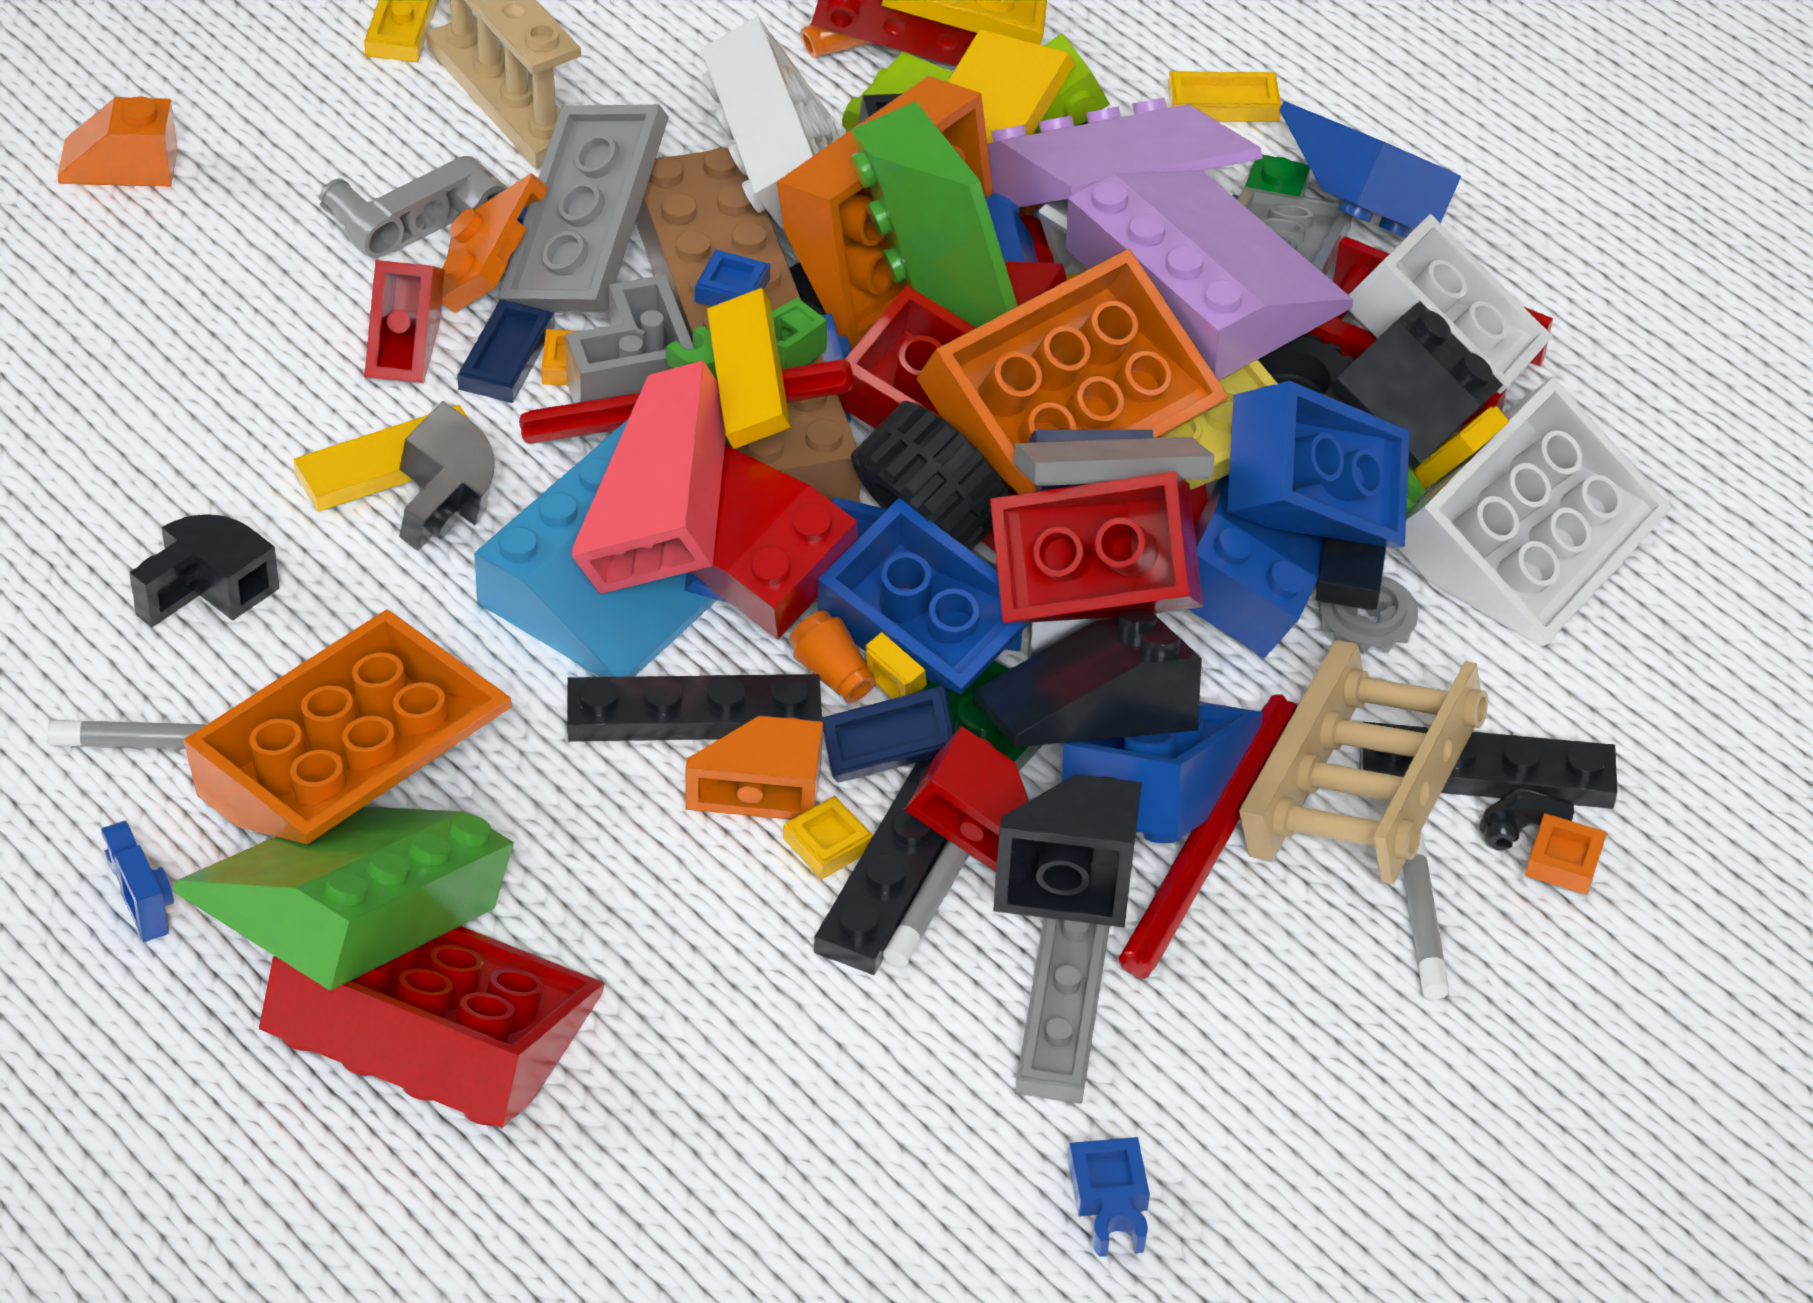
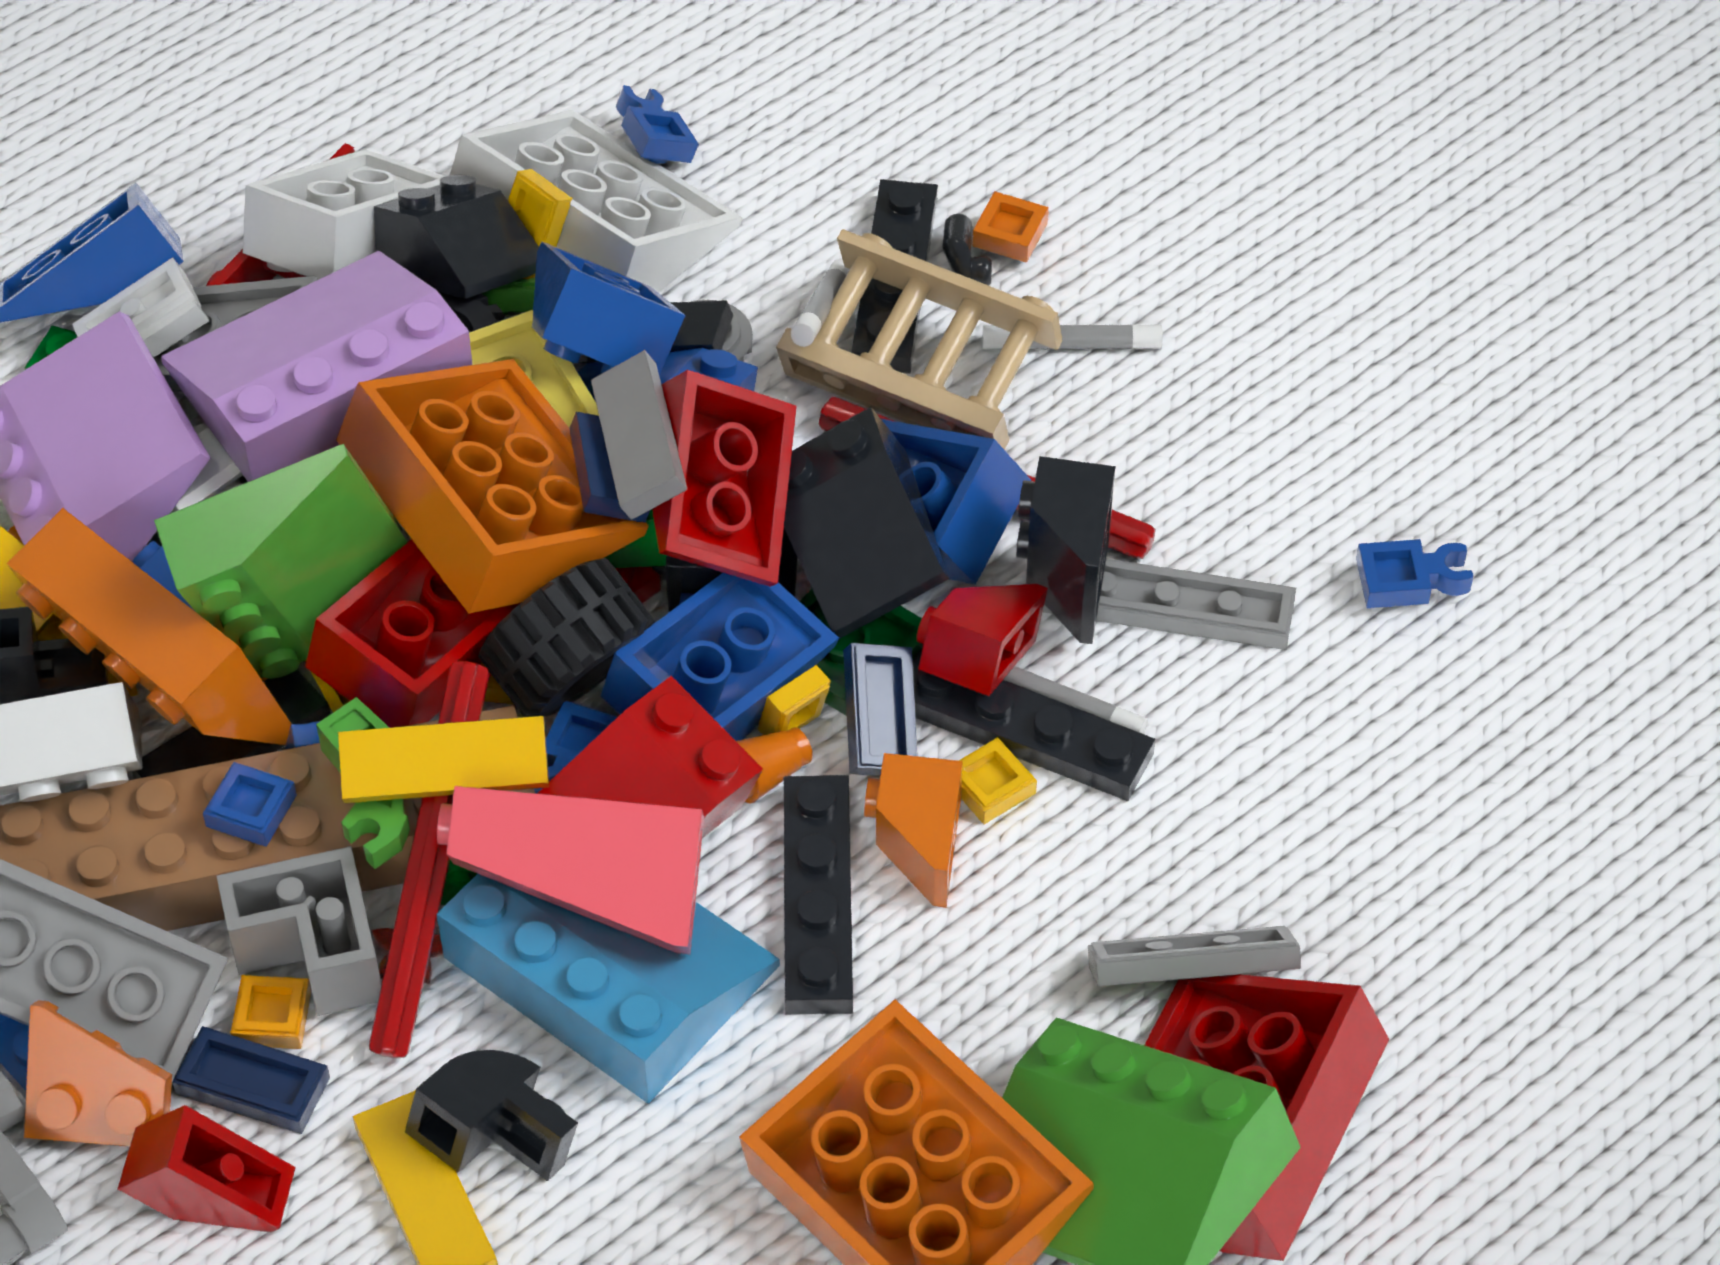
camera: 85 degrees left, 5 degrees up
(607, 979) = (1193, 955): none -> light grey tile
(1287, 188) = (158, 305): none -> white plate
(1384, 667) = (819, 305): none -> bar
(1646, 563) = (655, 132): none -> blue plate

